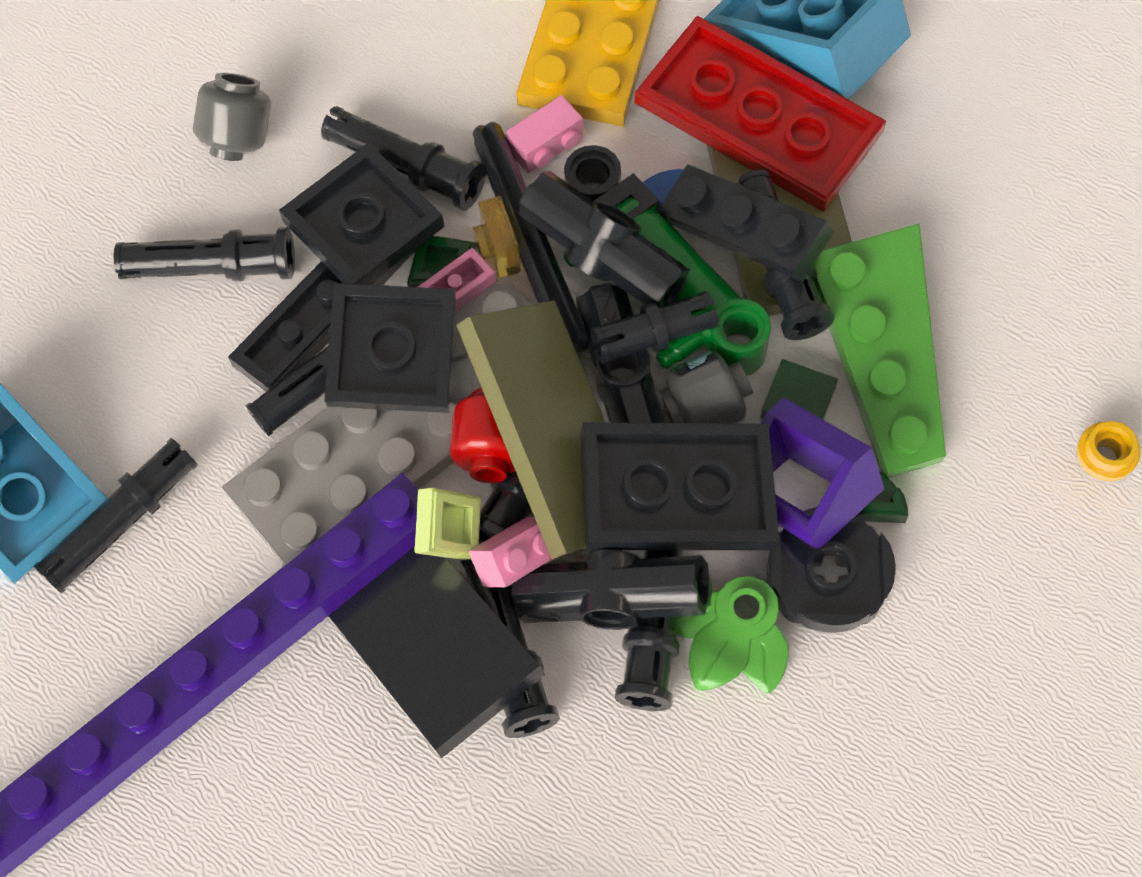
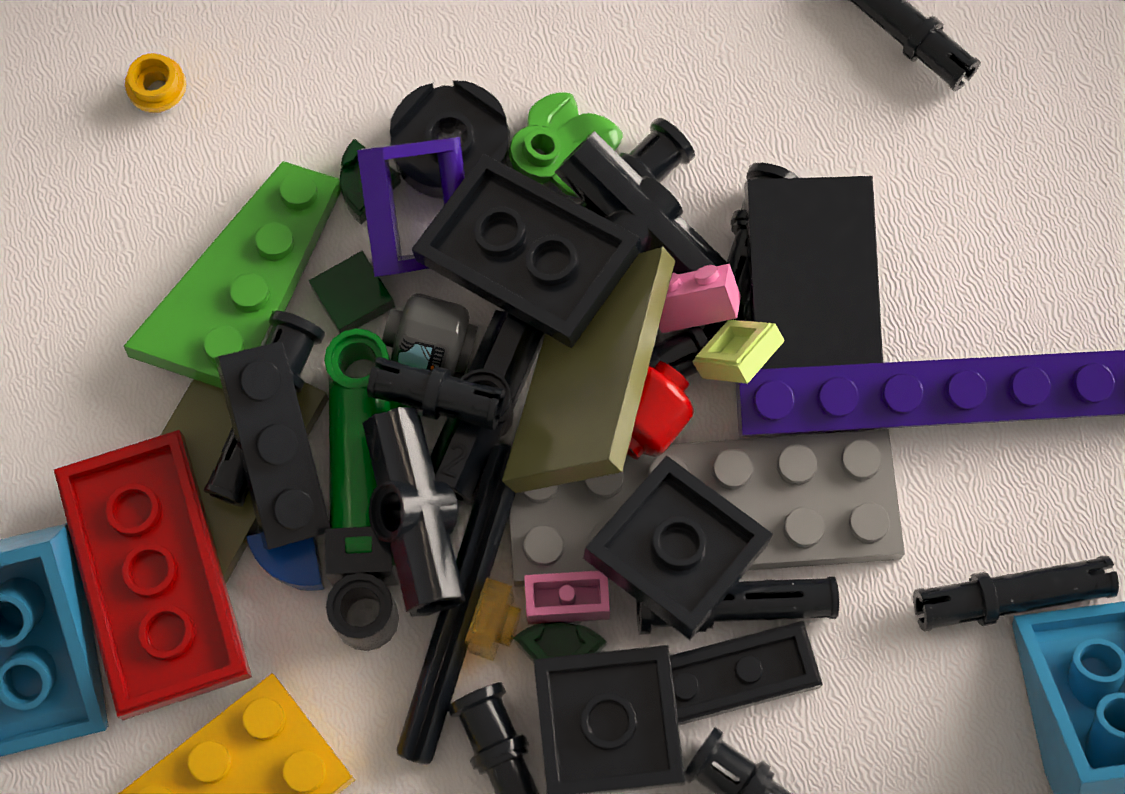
camera: 145 degrees left, 5 degrees up
(545, 134) = (360, 709): bright pink piece -> none

